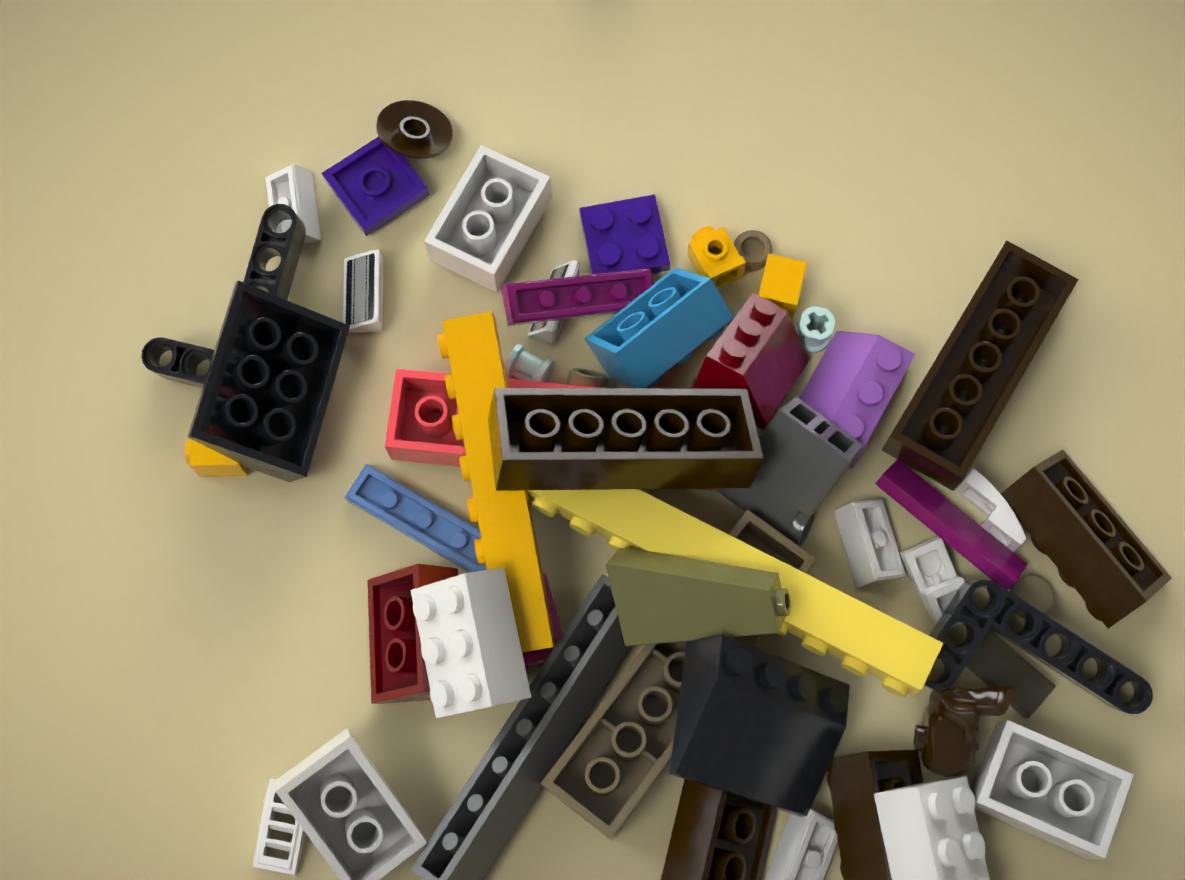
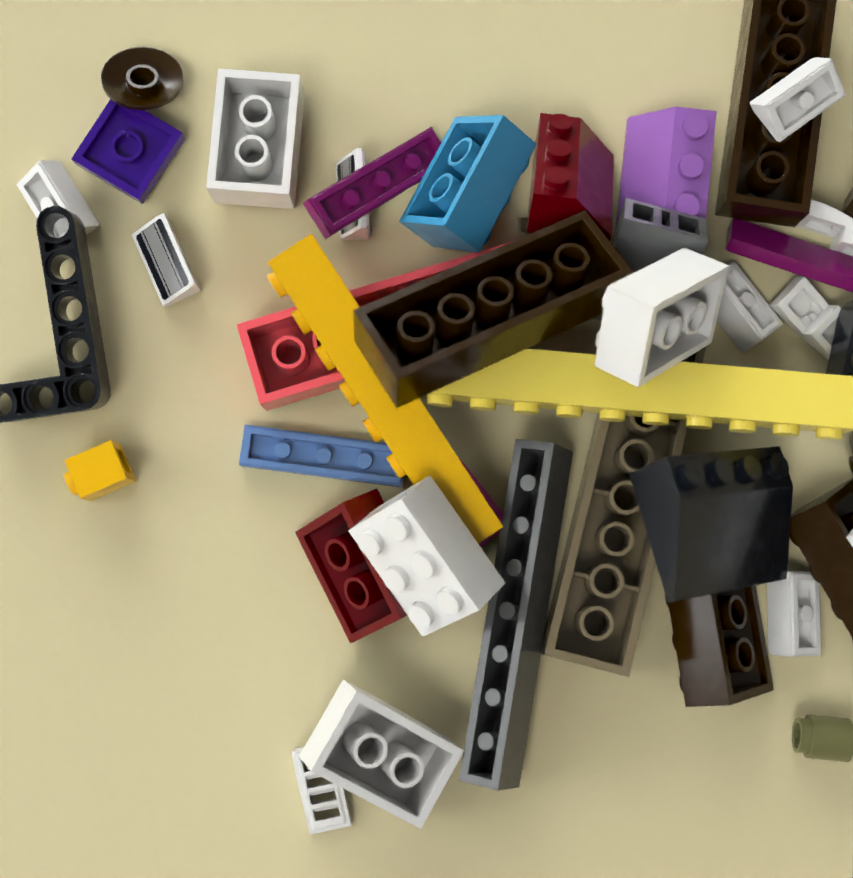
camera: 25 degrees left, 10 degrees up
(269, 383) = (120, 388): black slope -> none
(527, 366) = (357, 269): light aqua bush -> none
(587, 377) = (417, 259): dark tan tile -> none
(625, 236) = (391, 105): dark purple plate -> none
(692, 599) = (620, 431): olive slope -> none
(721, 268) = (488, 102): yellow brick -> none
(754, 248) = (517, 70): dark tan tile -> none
(773, 508) = (659, 316): none -> white brick
(782, 282) = (561, 90): yellow brick -> none
(815, 318) = (606, 113): light aqua bush -> none
(995, 370) = (799, 97): none -> white slope

